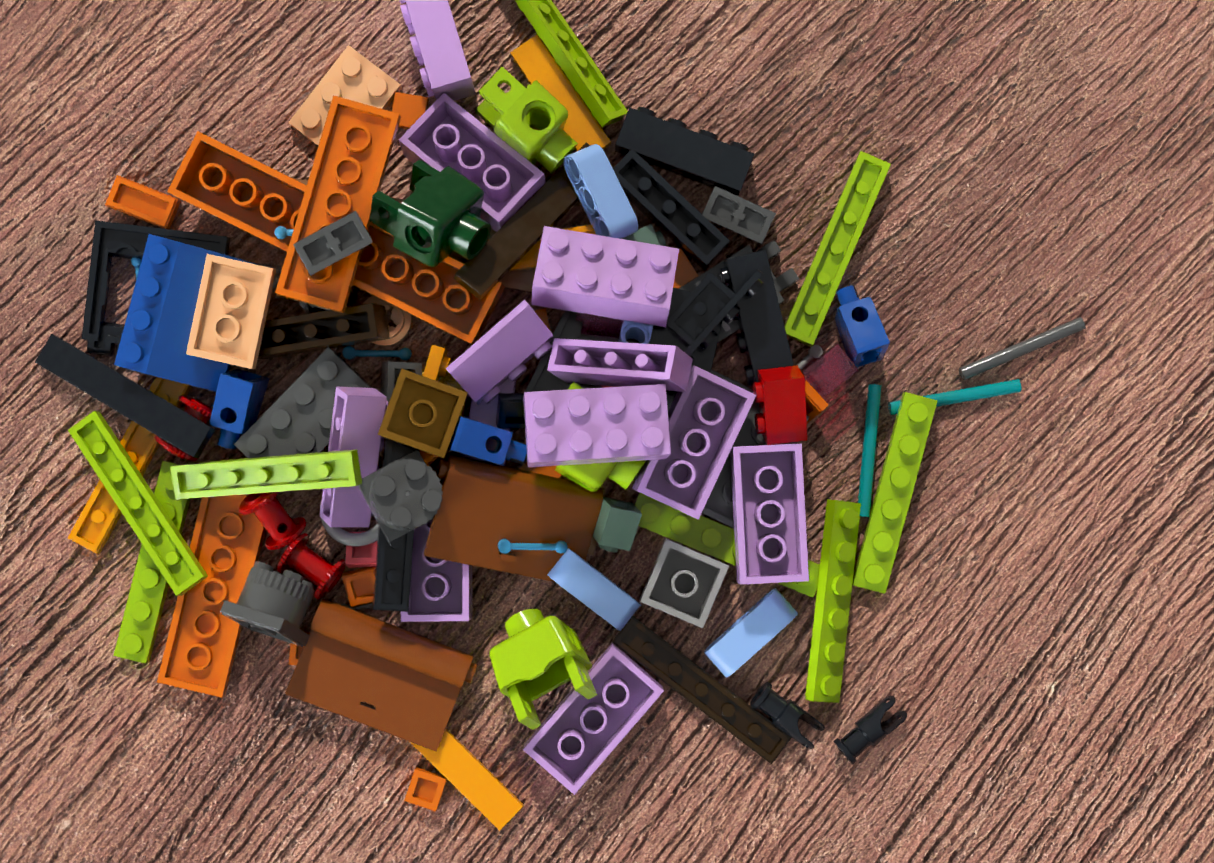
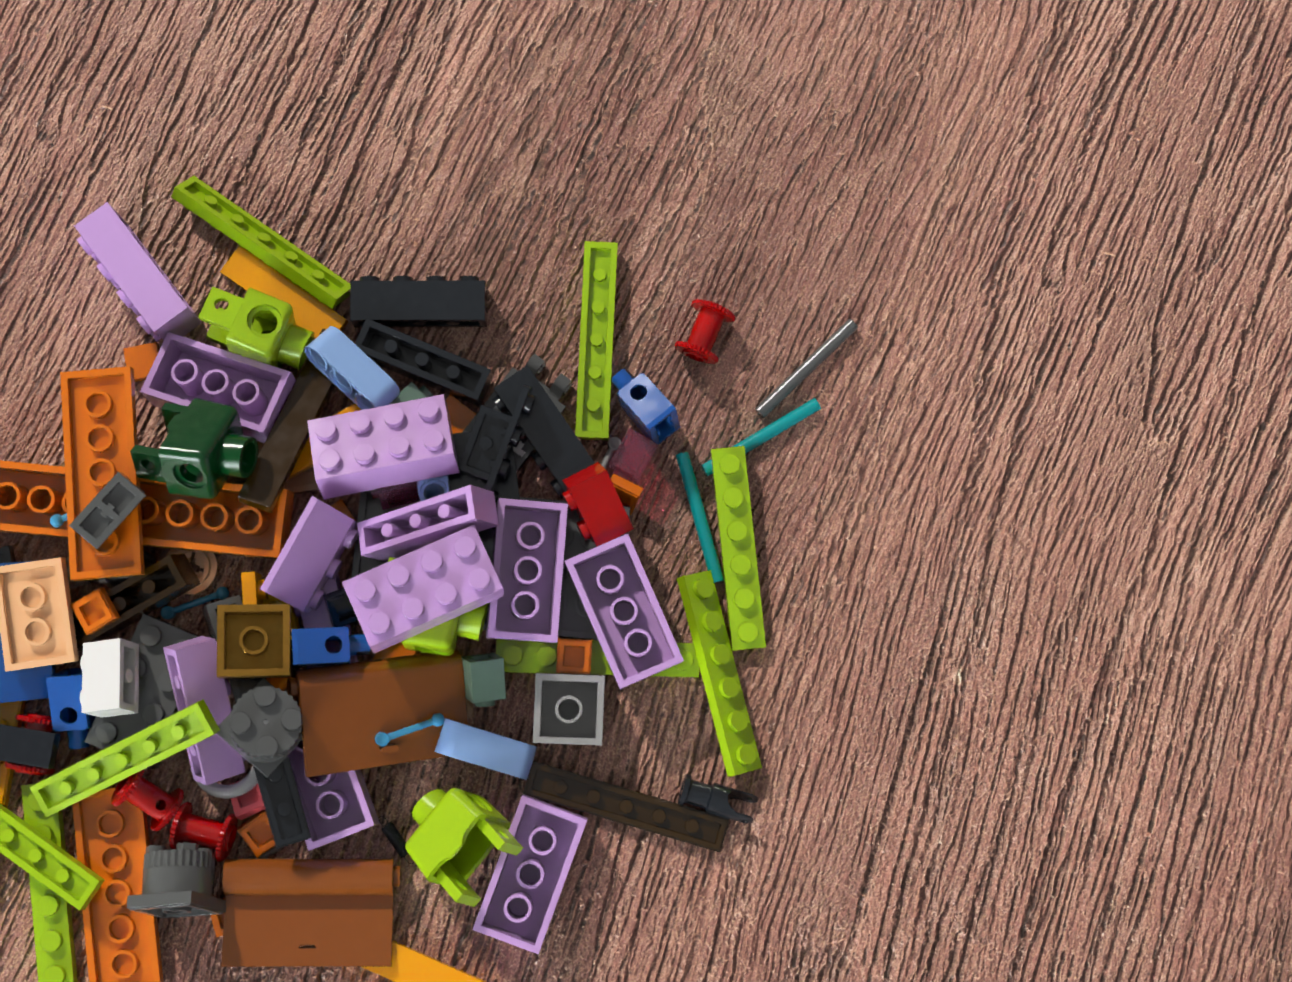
camera: 25 degrees left, 5 degrees down
(278, 396) = (110, 678): none -> white brick
(286, 329) = (95, 611): none -> orange tile
(348, 78) = (74, 350): light nougat plate -> none
(481, 638) = (395, 838): none -> black piece
(706, 536) = (574, 656): none -> orange tile
(738, 215) = (491, 342): dark grey hinge -> none
(750, 632) = (652, 733): light blue beam -> none
(870, 730) = (800, 783): black piece -> none
(941, 278) = (705, 331): none -> red hose

